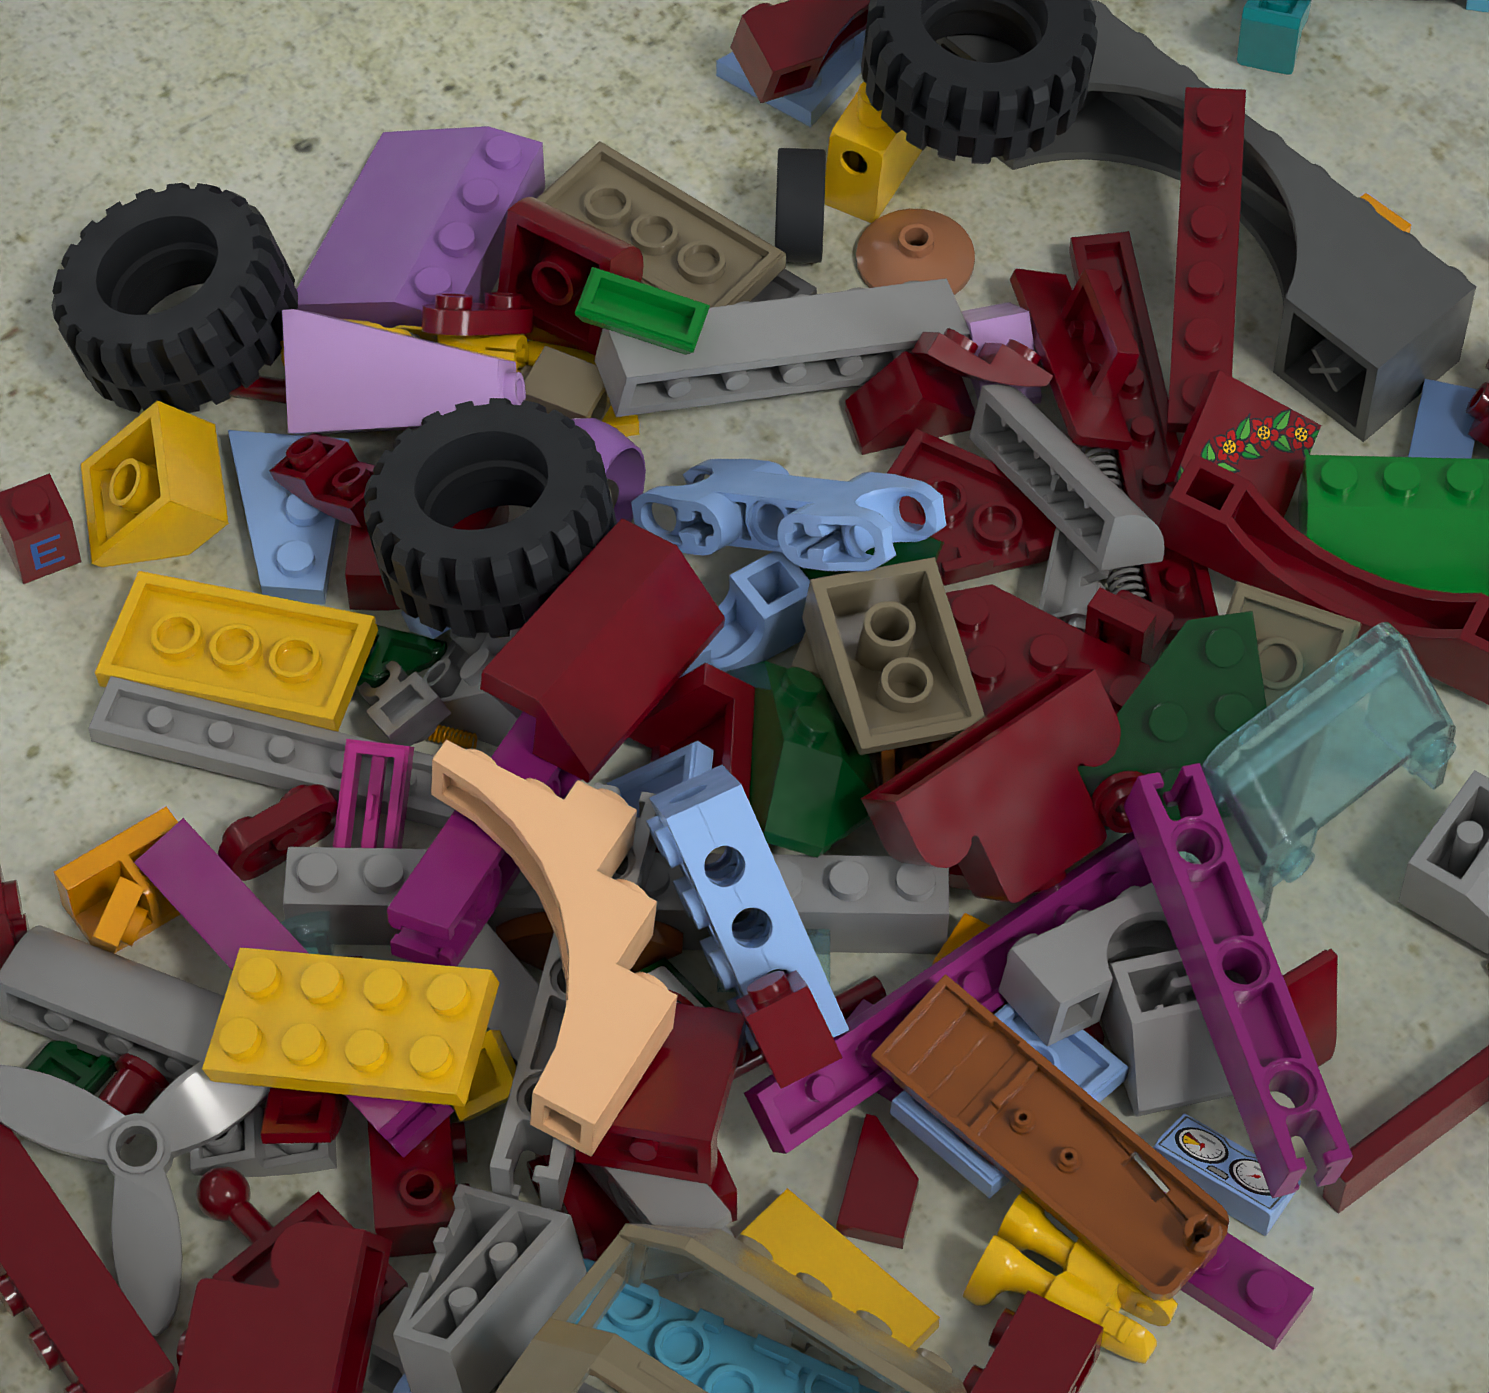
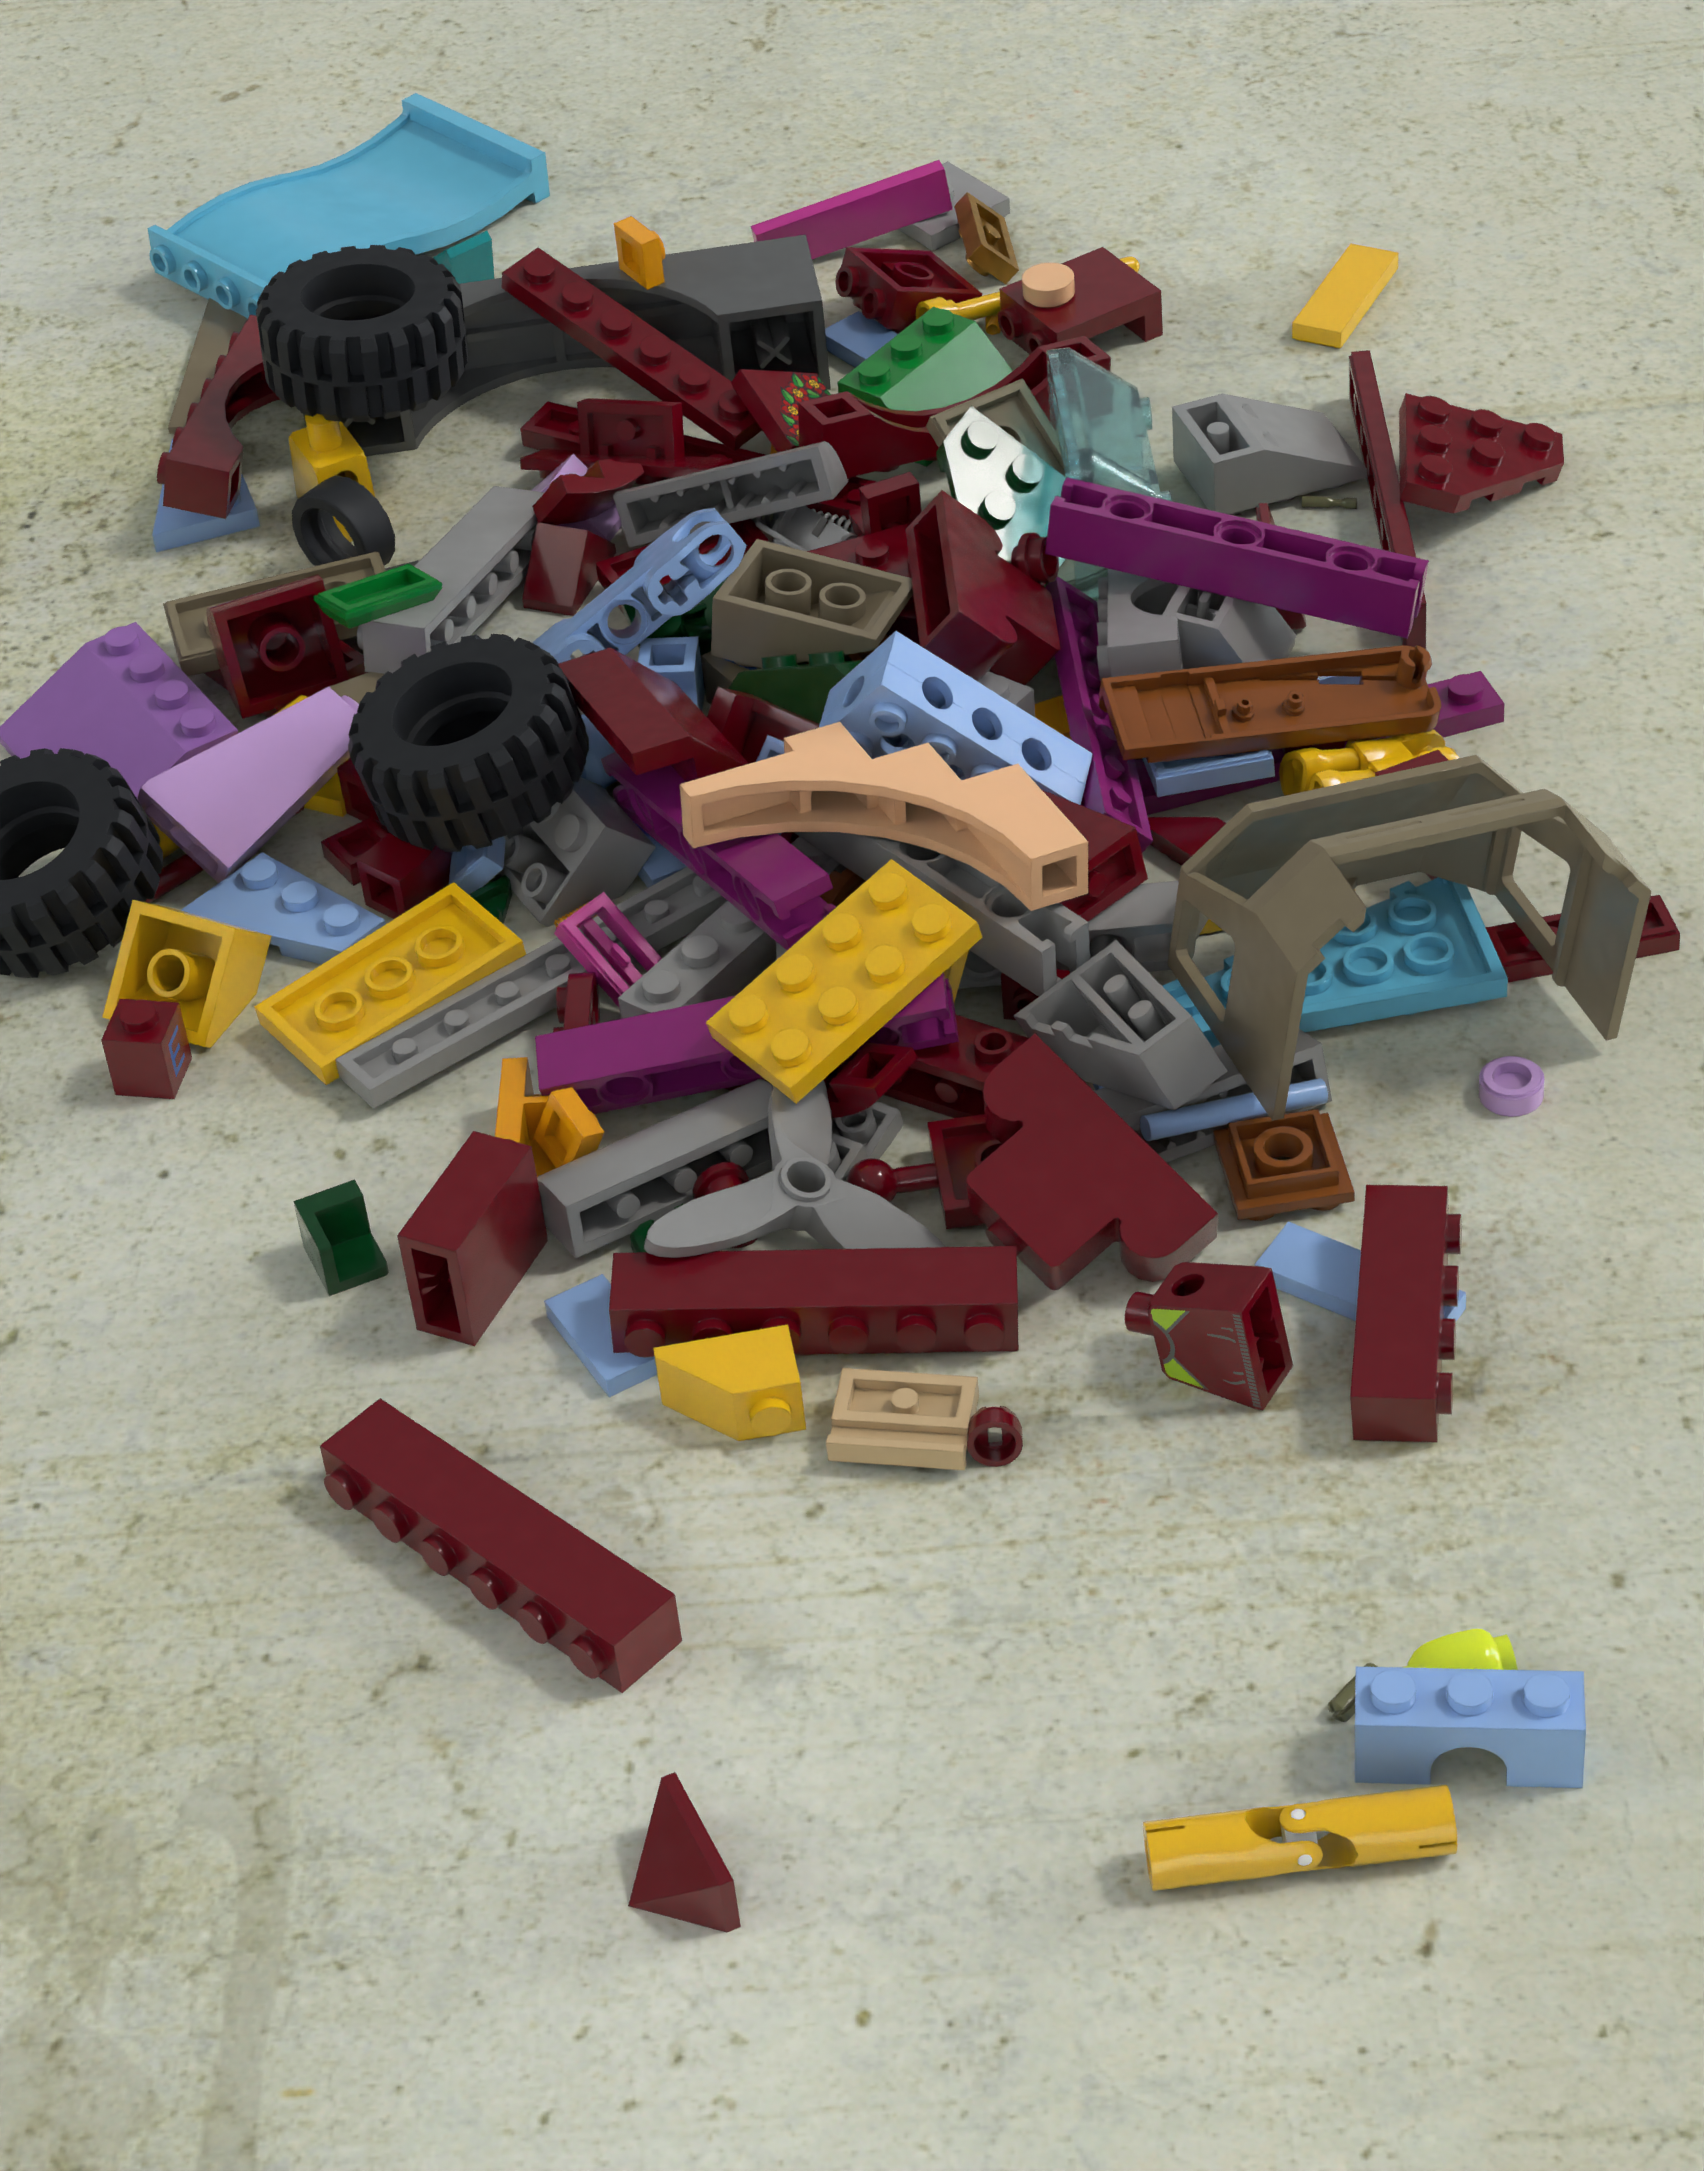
camera: 50 degrees left, 15 degrees down
(326, 477) = (296, 860): dark red slope -> none
(404, 707) = (548, 902): flat silver plate -> none
(459, 316) = (257, 703): dark red plate -> none
(787, 1027) = (1076, 757): dark red brick -> none
(889, 258) = (428, 516): nougat dish -> none
(1306, 177) = (640, 252): none -> light orange plate

